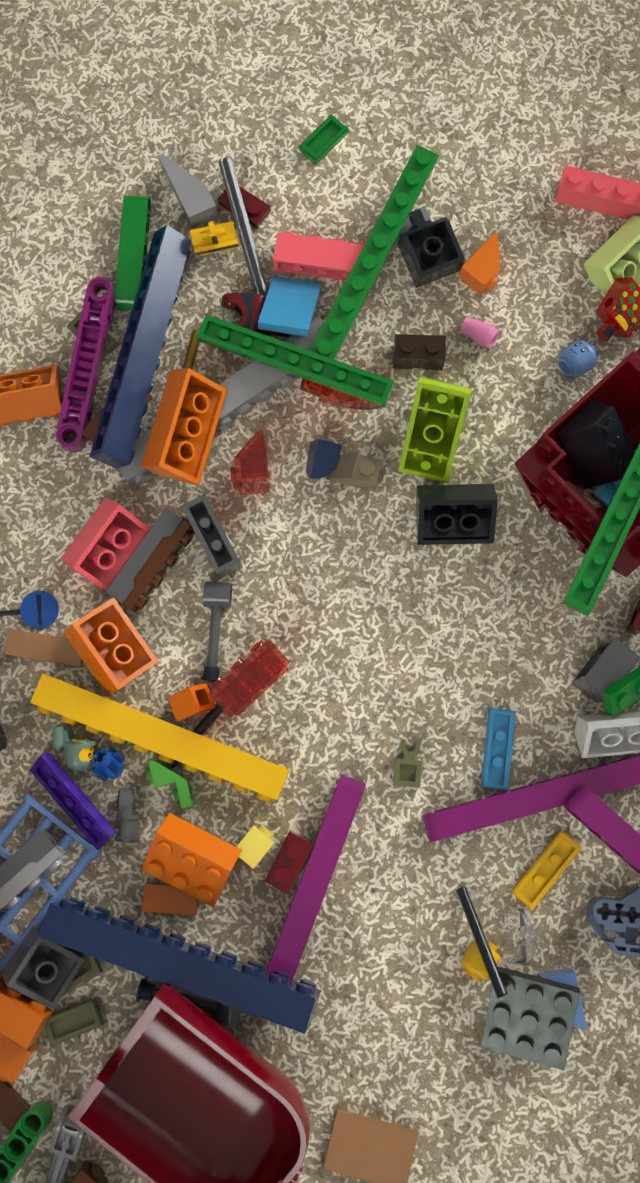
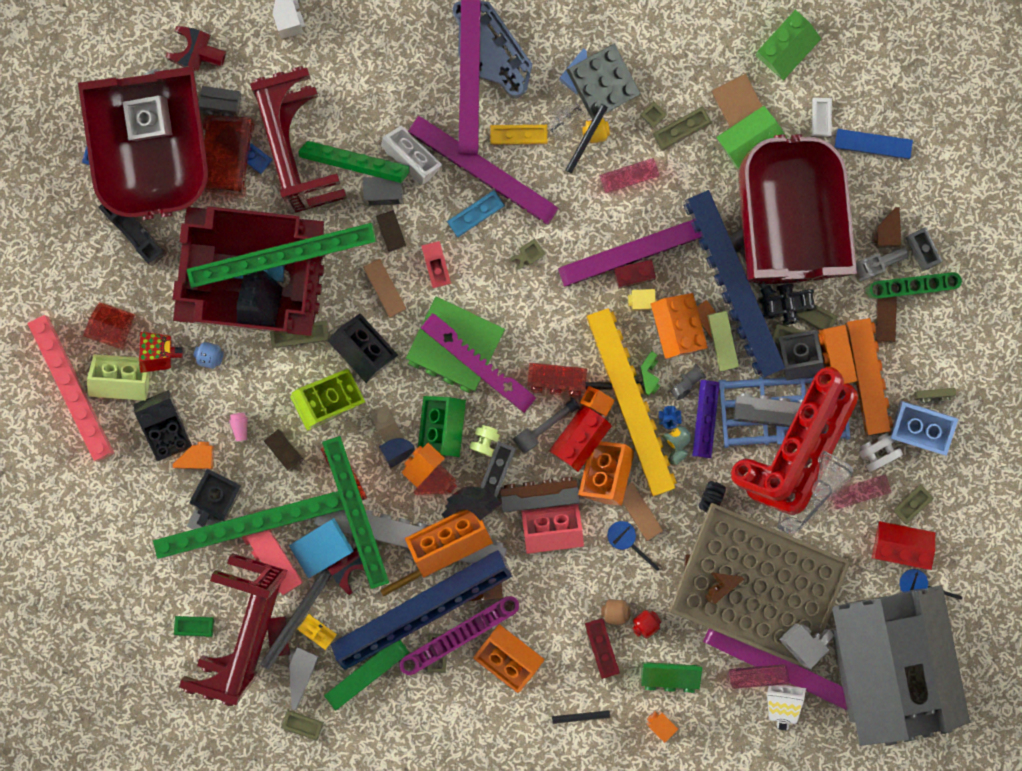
camera: 130 degrees left, 5 degrees up
(105, 1011) = (795, 302): none -> black axle
(136, 894) = (723, 340): none -> yellowish green tile
(140, 159) = (302, 725): none -> olive tile
(169, 650) = (580, 438): none -> red slope
(200, 483) = (472, 499): none -> black arch
(230, 87) = (237, 669): none -> dark red arch
(255, 556) = (486, 435): none -> yellowish green brick
(284, 468) = (422, 465): none -> orange brick
(306, 523) = (442, 424): none -> green slope
(333, 1131) = (747, 133): none -> bright green slope
(378, 607) = (472, 329): none -> bright green panel
(400, 952) = (629, 175): none -> clear pink plate
(403, 1059) = (682, 128): none -> olive tile
(410, 599) = (438, 329): none -> magenta gear
(445, 1040) = (653, 114): none -> olive plate
(479, 660) = (436, 264): none -> coral slope
(498, 588) = (384, 288): none -> medium nougat tile
(510, 482) = (319, 333): none -> olive plate
(545, 261) = (162, 425): none -> black slope
(553, 645) = (391, 231): none -> dark brown tile

